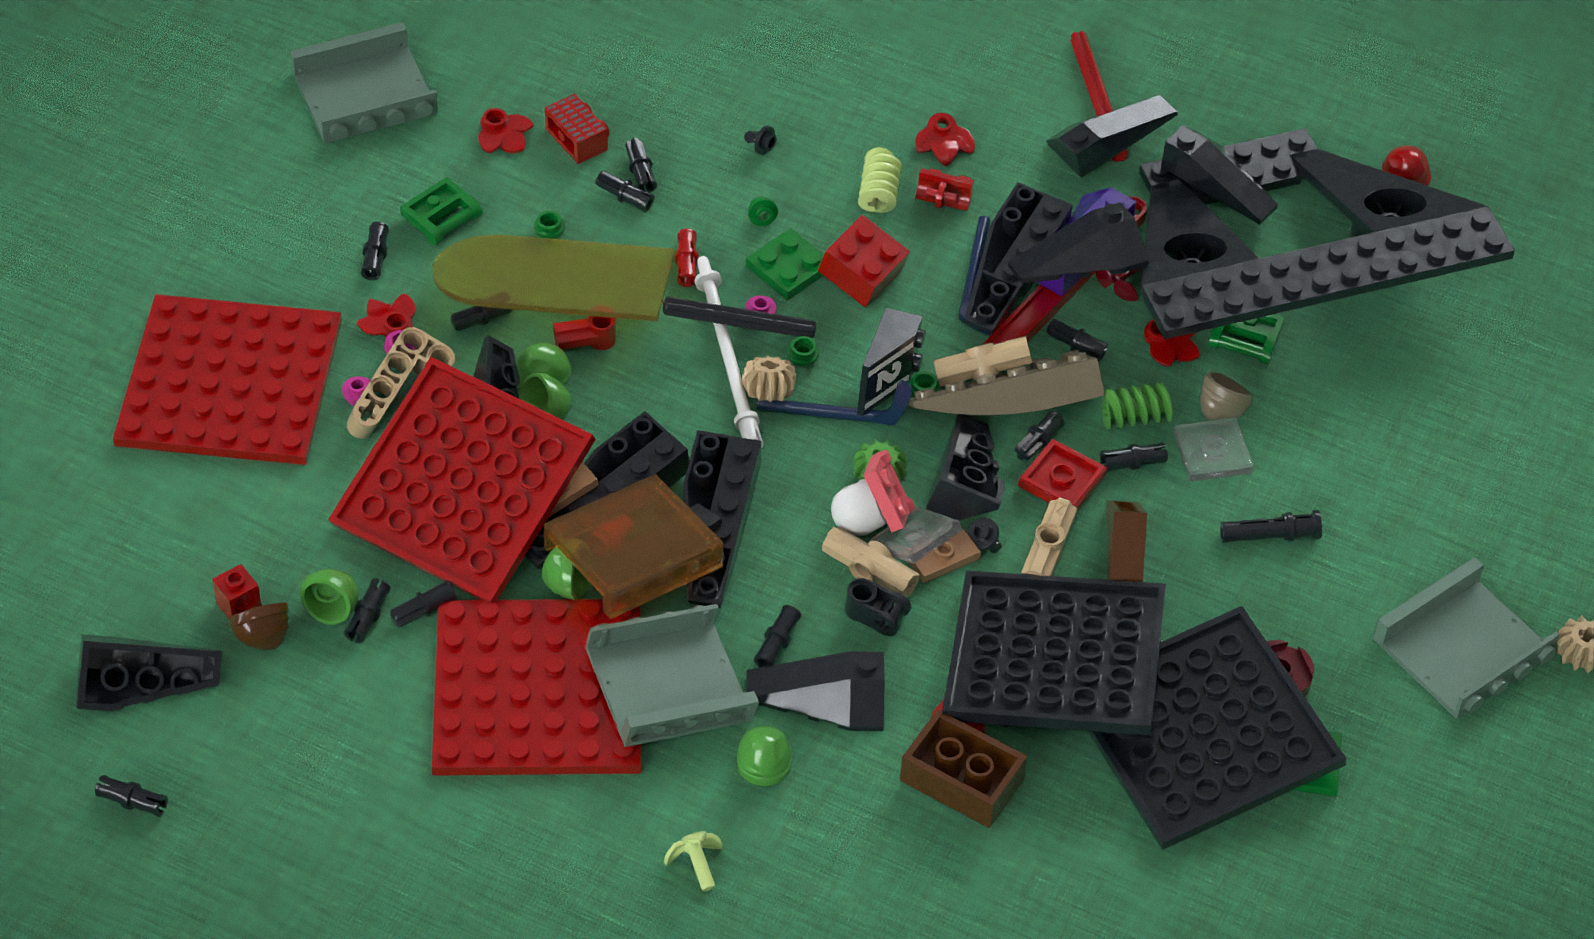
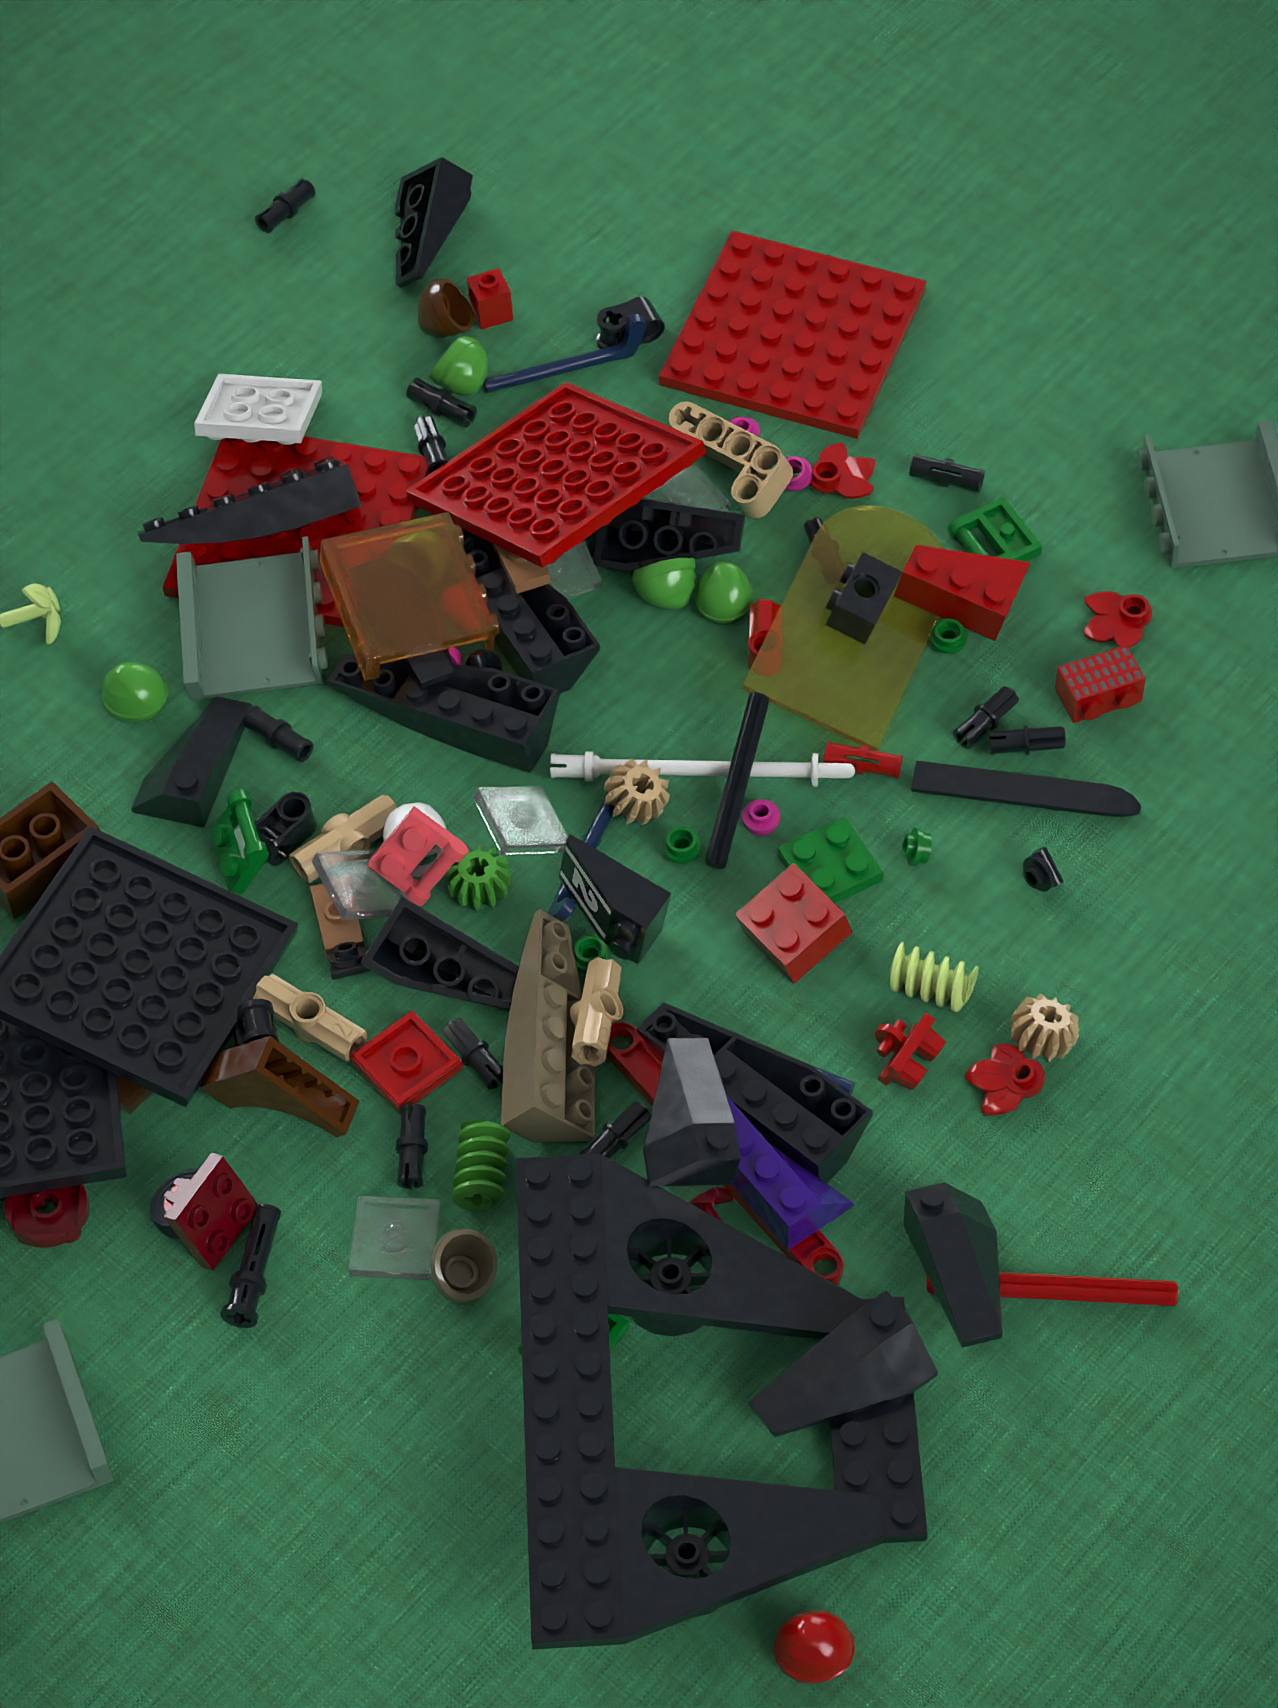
camera: 110 degrees right, 5 degrees up
(248, 489) = (618, 319): none -> black piece
(290, 516) = (626, 348): none -> dark blue piece
(418, 734) = (258, 408): none -> white plate
(509, 209) = (962, 586): none -> red wedge
(545, 259) = (862, 598): none -> black brick
(548, 688) = (263, 509): none -> black wedge
(686, 166) = (1023, 790): none -> black piece
(819, 446) = (521, 819): none -> clear plate
(901, 116) = (1044, 1027): none -> tan gear
(910, 630) = (238, 843): none -> green plate
(1088, 555) = (254, 1021): none -> black piece
(1246, 564) = (204, 1209): none -> dark red plate

